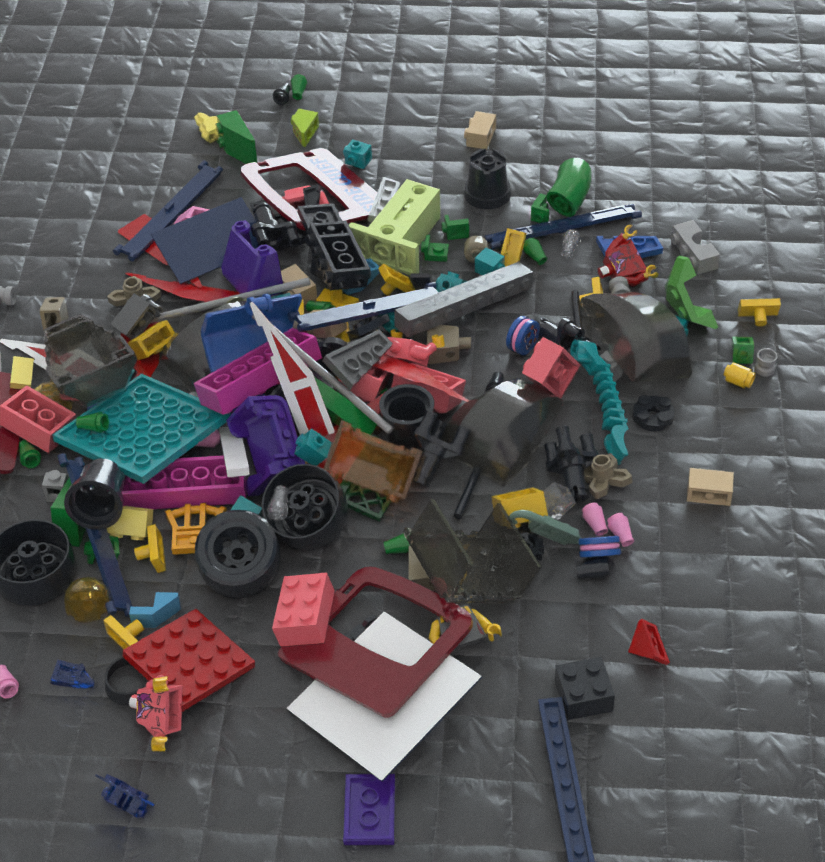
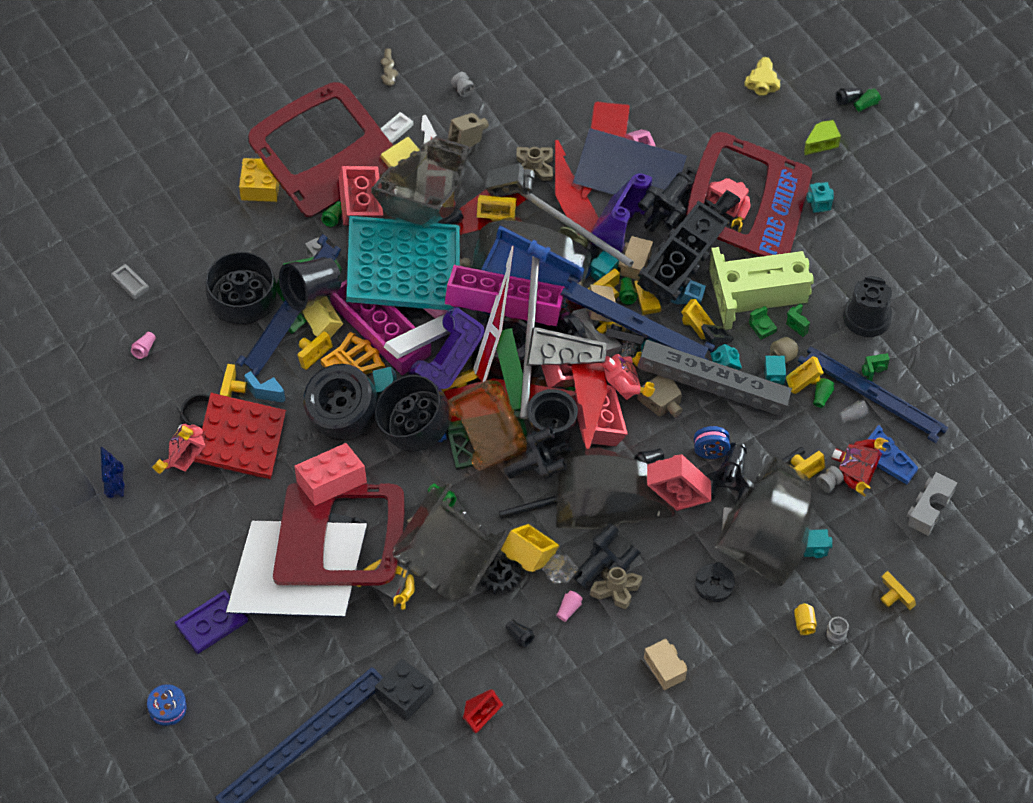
camera: 50 degrees right, 10 degrees up
(71, 675) = (178, 378): clear blue slope -> none
(86, 599) = (237, 340): clear yellow cylinder -> none
(94, 422) = (376, 233): green cone -> none
(170, 211) = (647, 120): dark blue piece -> none
(236, 137) = (760, 101): green slope -> none
(278, 504) = (395, 394): clear cone -> none
(312, 447) = (462, 378): teal brick -> none
(385, 192) = (802, 243): tile -> none
(480, 130) = (935, 262): tan brick -> none
(548, 527) = (524, 576): sand green plate -> none
(570, 187) = (917, 369): green brick -> none
(599, 546) = (537, 623): blue head -> none
(613, 416) = (720, 496): teal piece -> none
(619, 526) = (573, 627): bright pink cone -> none
(678, 296) = (849, 530): bright green wedge -> none
(743, 350) = (840, 604): green bracket -> none

